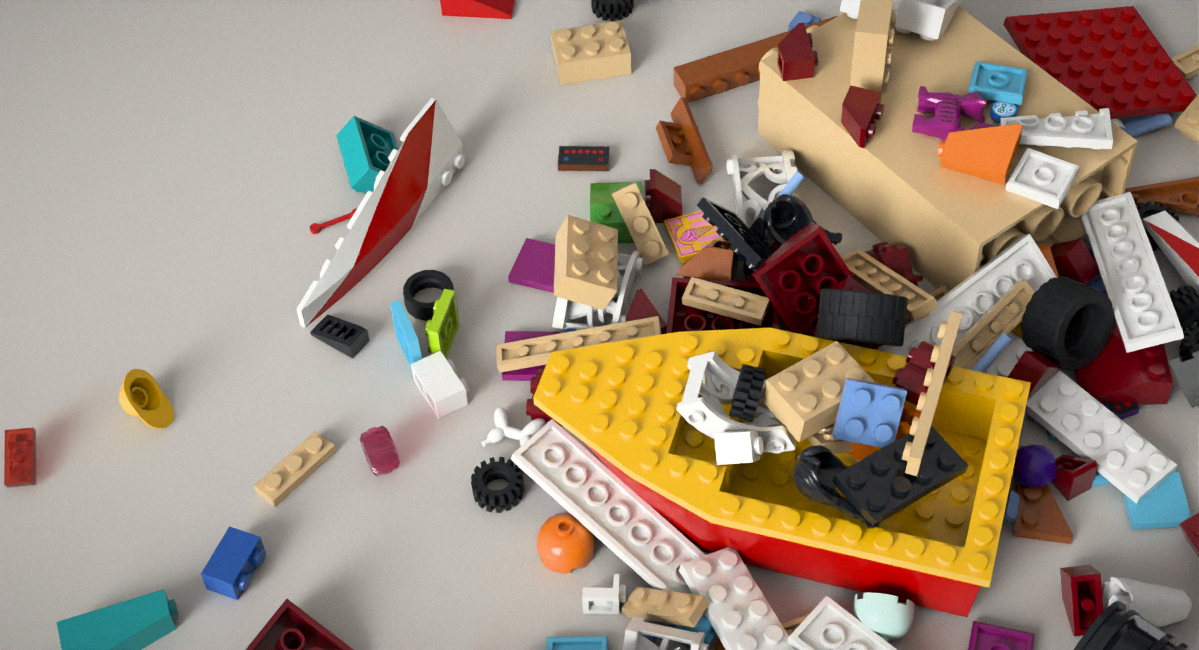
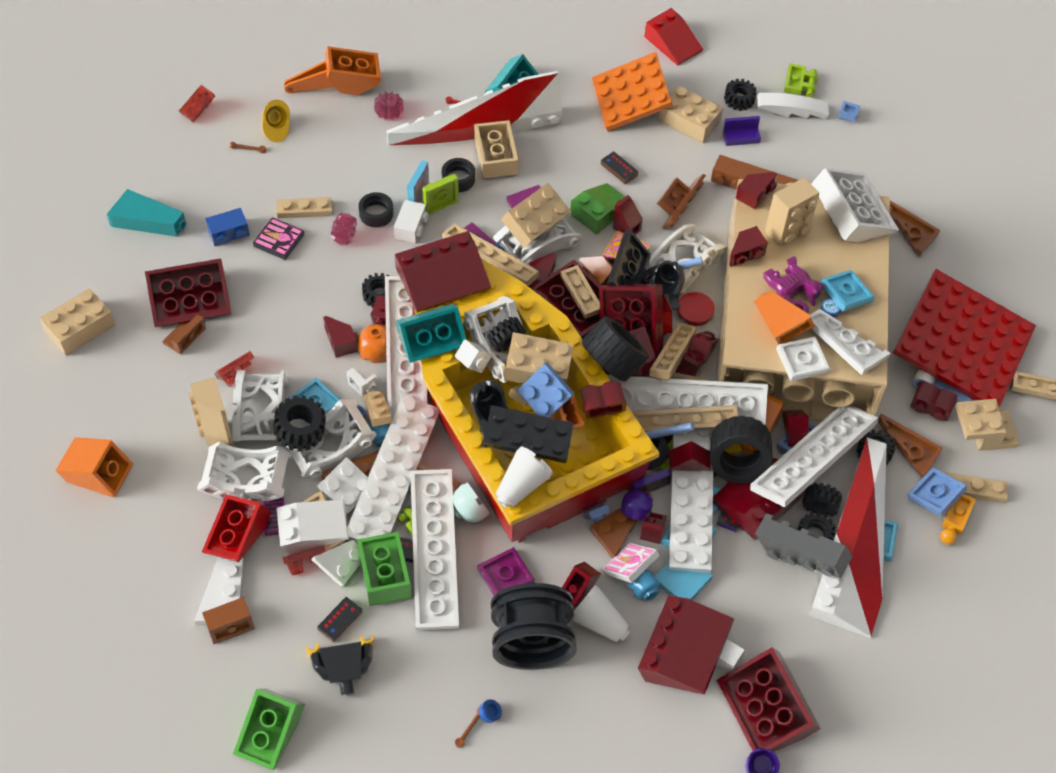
camera: 40 degrees right, 5 degrees up
(161, 447) = (262, 149): none -> dark orange hinge
(165, 279) = (344, 69): none -> orange slope
(258, 283) = (388, 105): none -> clear pink gear
(308, 526) = (278, 238): none -> tile
(350, 347) = (397, 170): black slope -> none
(382, 386) = (376, 198): none -> black tyre
(440, 236) = (496, 149): none -> tan brick
(509, 72) = (632, 91): none -> orange plate
(518, 569) = (341, 337): none -> dark red slope
(535, 502) = (378, 312): none -> dark red bracket
(596, 387) = (442, 271): none -> dark red slope
(640, 223) = (594, 220): tan plate -> none
(658, 33) = (741, 130): none -> dark purple panel
(668, 458) = (431, 332): none -> teal slope
(843, 224) = (696, 308): none -> red tile
(928, 401) = (584, 407): tan plate -> none
(958, 519) = (522, 477): none -> white cone
(1101, 527) = (630, 562): none -> white tile
(1137, 538) = (645, 586): none -> dark azure head
(1152, 138) = (934, 401): none -> dark red brick

